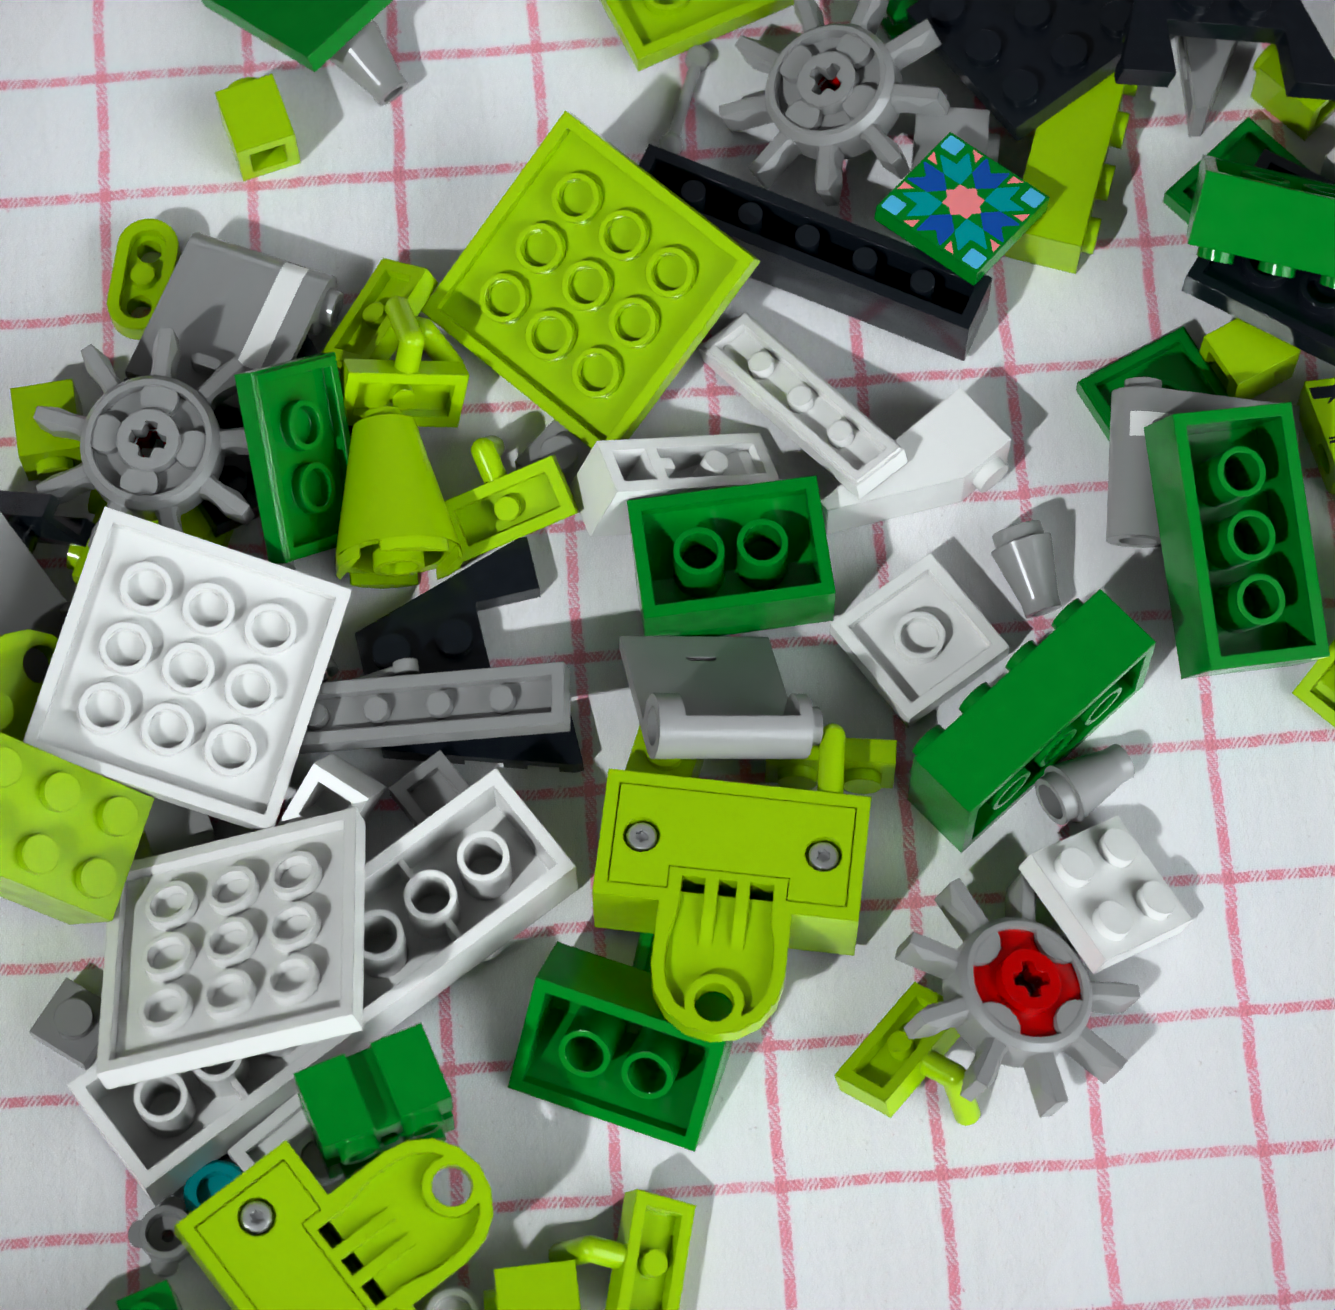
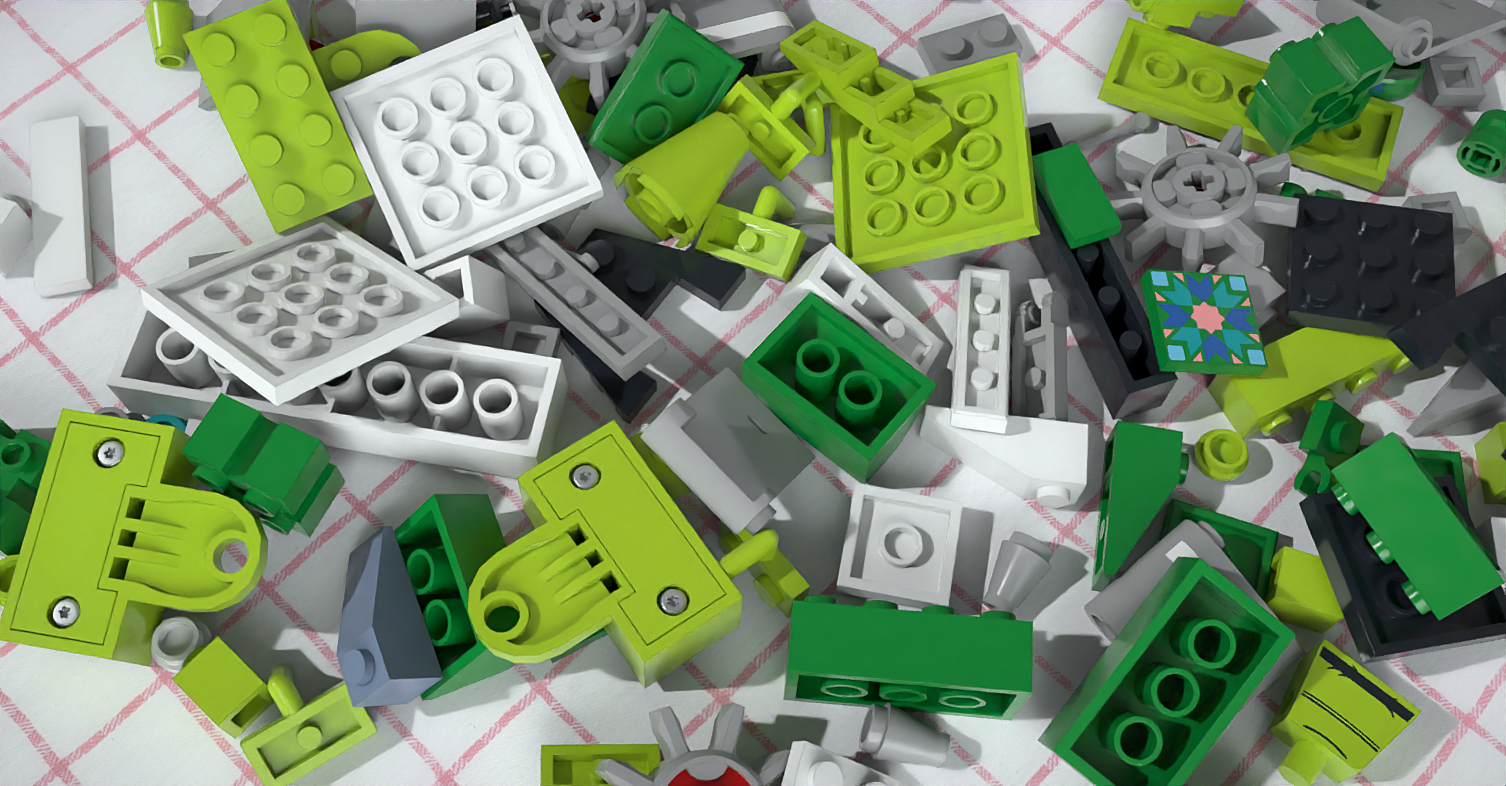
camera: 45 degrees right, 5 degrees down
(453, 268) = (865, 89): none -> lime slope
(474, 131) = (968, 44): none -> light grey plate
(598, 1123) = (382, 630): none -> sand blue slope
(747, 196) = (1074, 196): none -> green tile
(859, 367) = (1041, 359): none -> light grey hinge
(1041, 397) = (1137, 479): none -> green slope
(1076, 305) = (1221, 455): none -> lime plate
(1150, 213) = (1328, 441): none -> green plate

